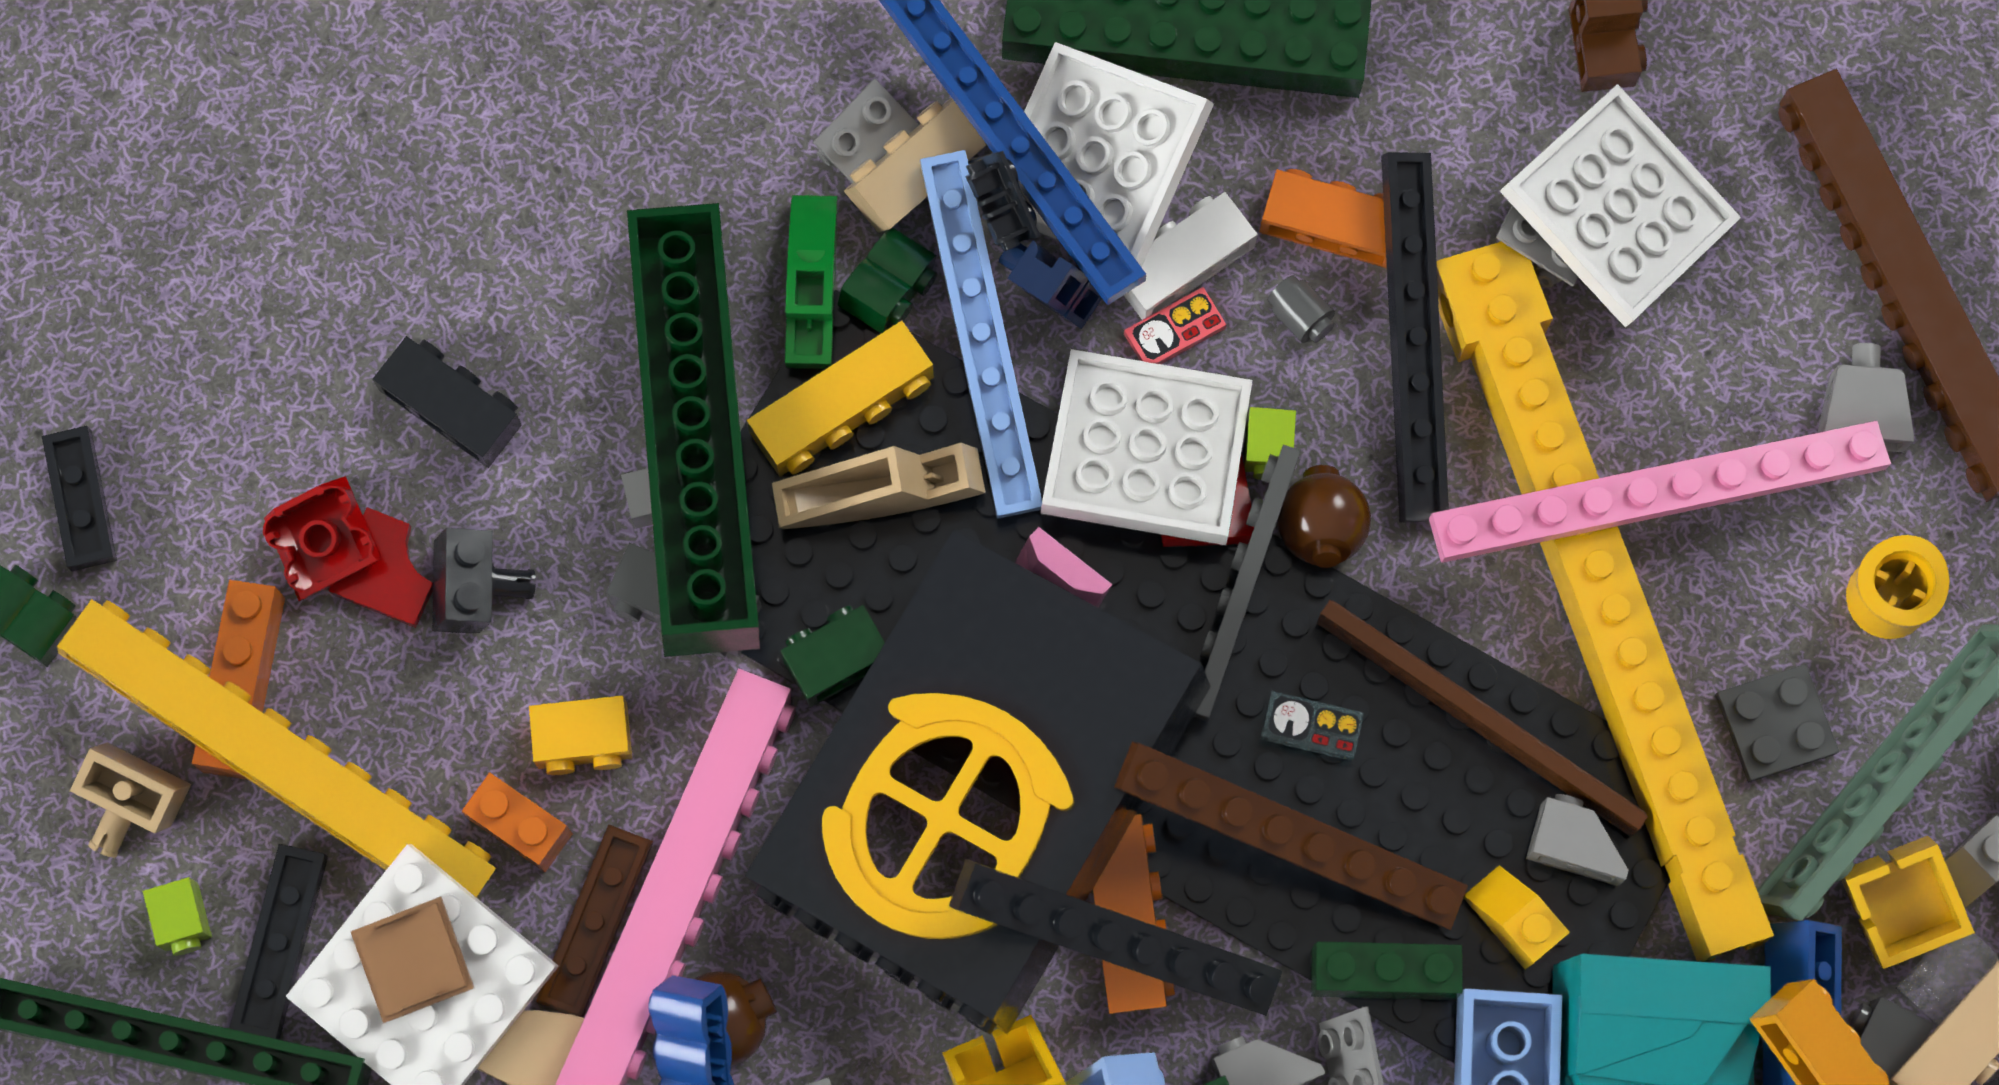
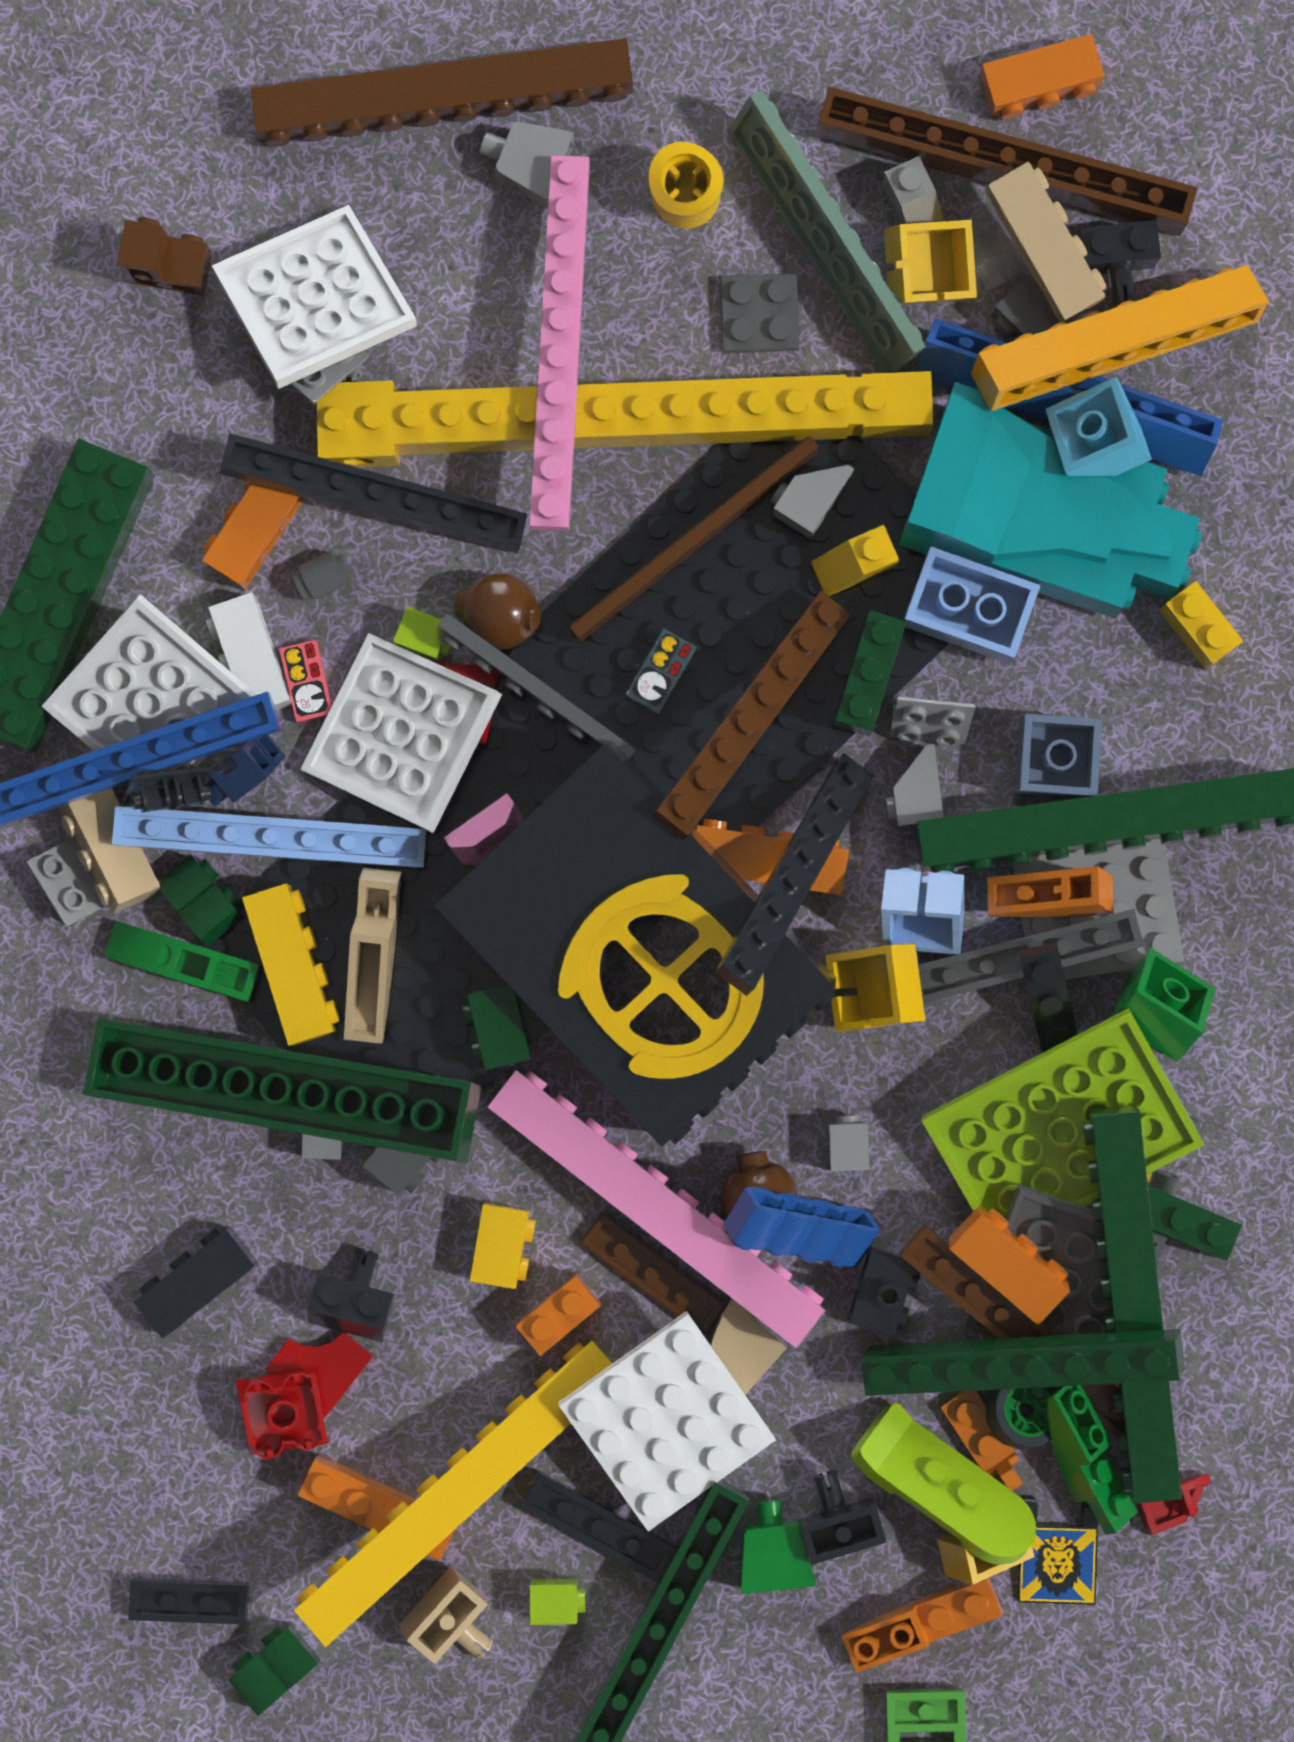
camera: 70 degrees left, 10 degrees up
(412, 959) = (651, 1424): medium nougat piece -> none

